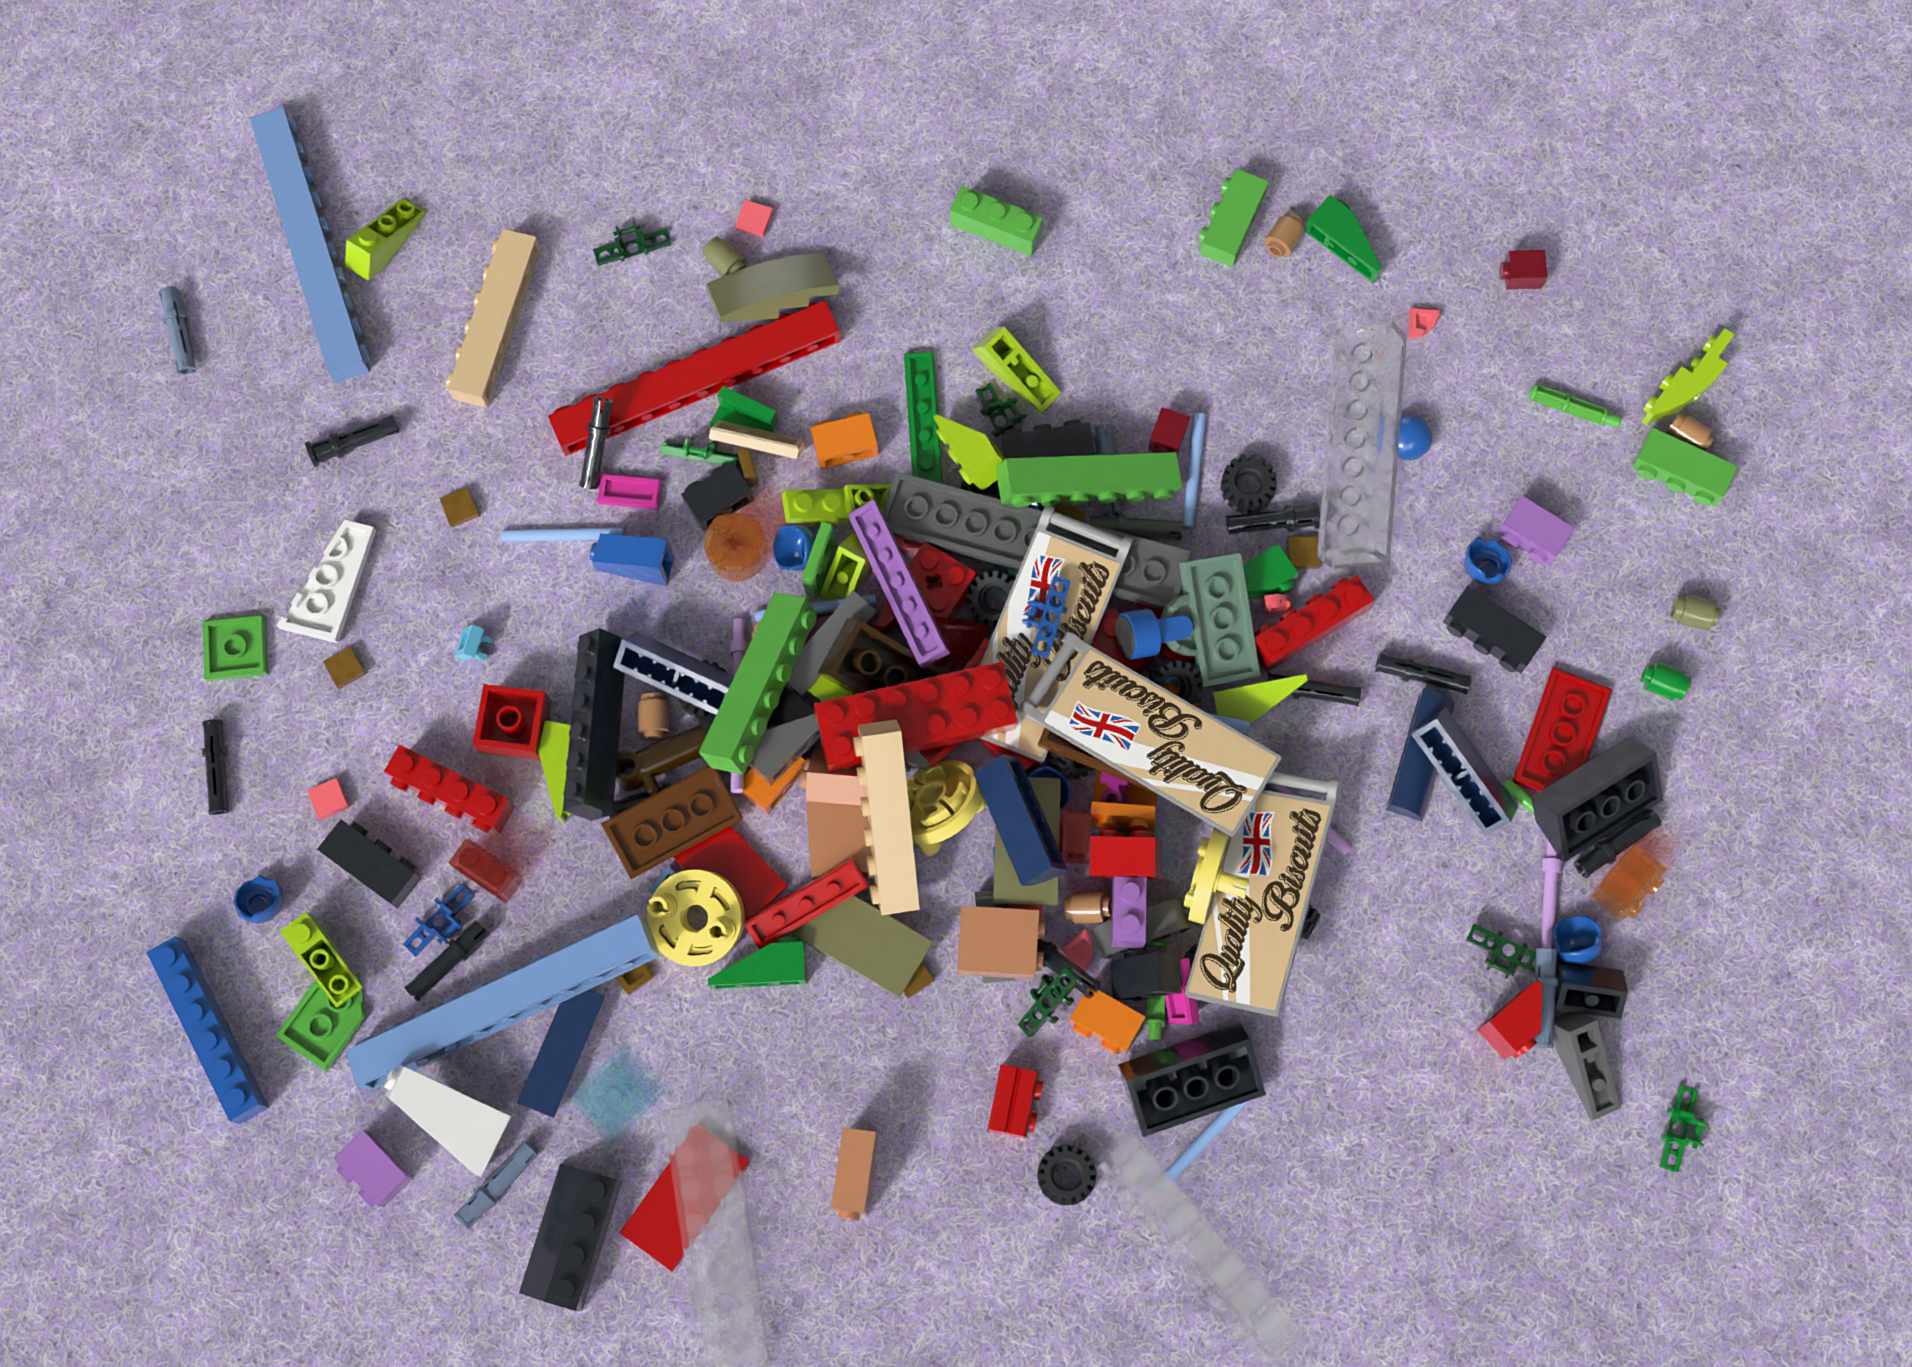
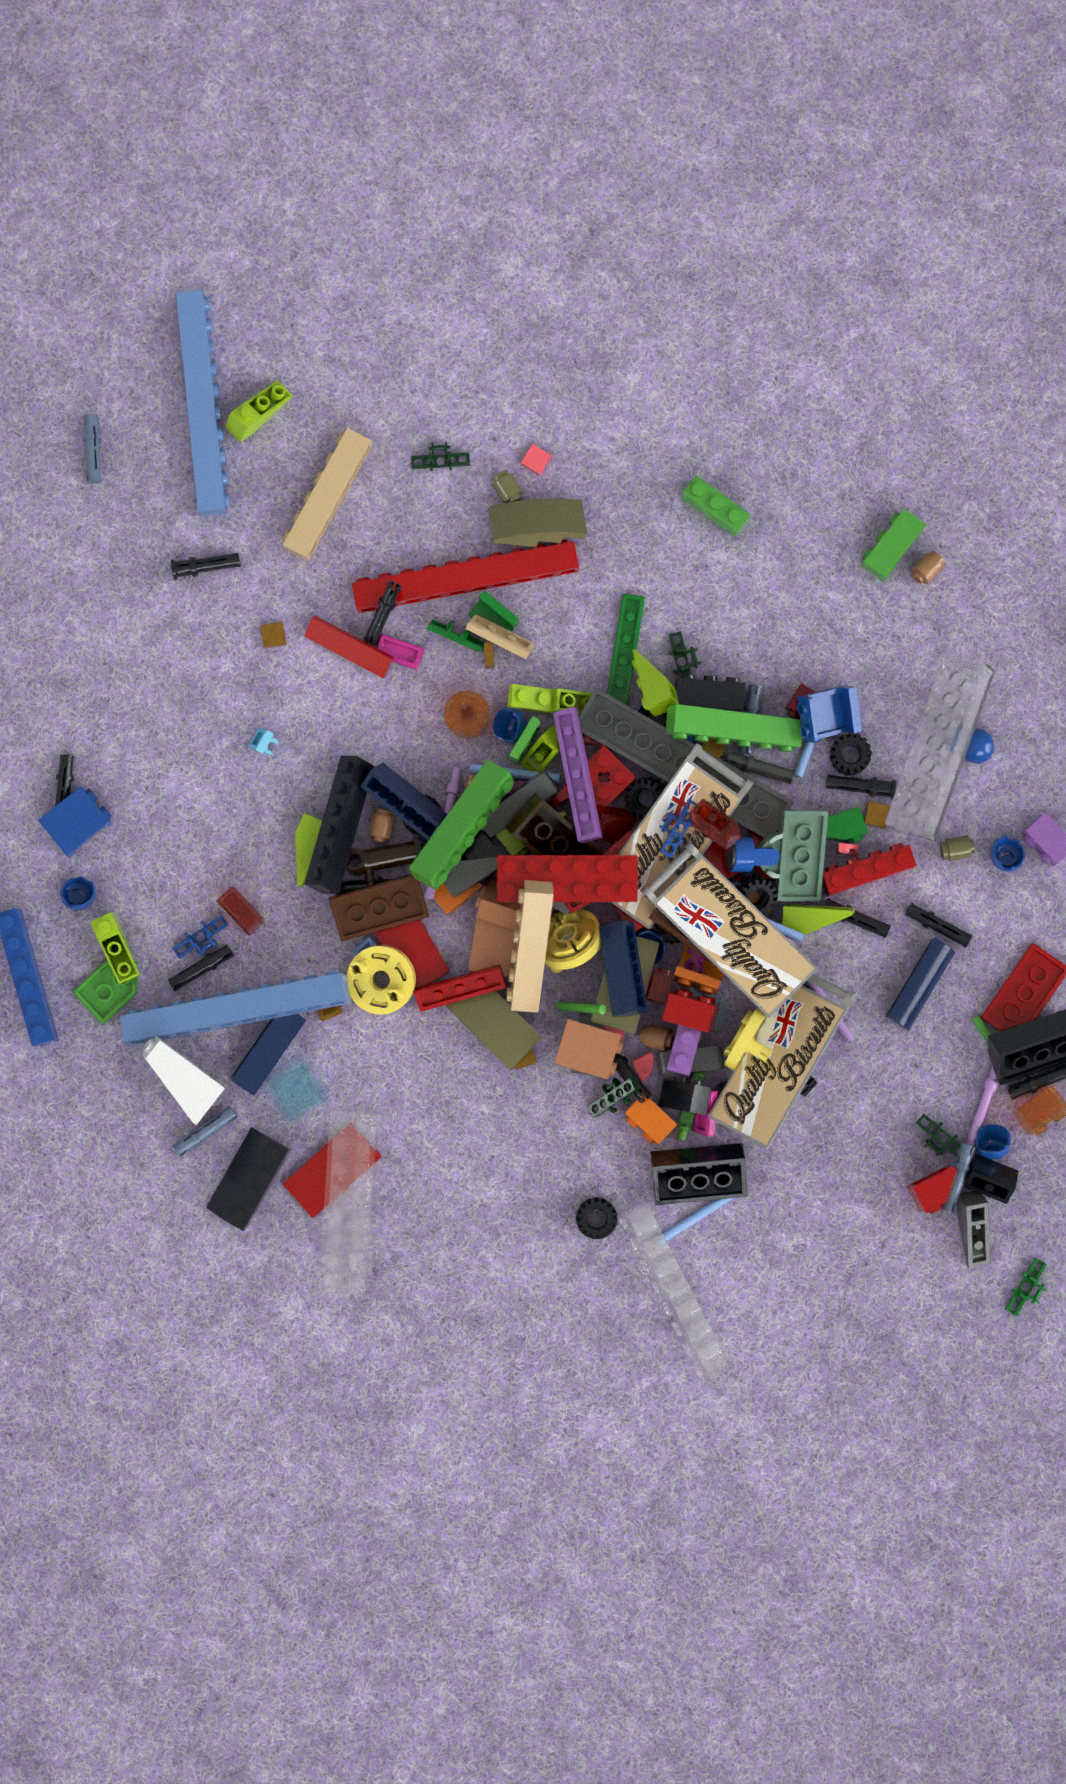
camera: 15 degrees right, 10 degrees up
(235, 647) = (92, 703): bright green tile -> none
(237, 803) = (75, 820): none -> blue panel
(328, 594) = (168, 676): white wing -> none
(328, 799) = (139, 831): coral tile -> none
(344, 667) = (168, 736): pearl gold tile -> none
(370, 862) = (160, 885): black brick -> none
(372, 1169) = (122, 1101): medium lavender brick -> none
(450, 789) = (226, 845): red brick -> none
(511, 721) = (280, 807): red brick -> none
(558, 534) = (343, 673): light blue bar -> none
(561, 498) = (348, 646): none -> red tile
(633, 557) = (391, 705): blue slope -> none
(717, 495) = (462, 672): black brick -> none
(771, 966) = (426, 1025): green slope -> none
(844, 440) = (564, 651): orange brick -> none
(854, 1173) = (451, 1184): nougat brick -> none
(976, 888) = (581, 1007): none -> bright green bar
(1014, 1101) = (572, 1160): red brick -> none
(1016, 368) = (702, 625): lime slope -> none
(1096, 597) = (715, 824): none -> clear red brick
(1208, 435) = (829, 713): none -> blue panel
(1341, 233) = (970, 577): green slope -> none
(1419, 569) = (957, 848): none -> olive brick
(1421, 321) = (1011, 658): coral tile -> none
(1465, 771) = (947, 1004): dark blue brick -> none
(1493, 630) = (997, 906): black brick -> none

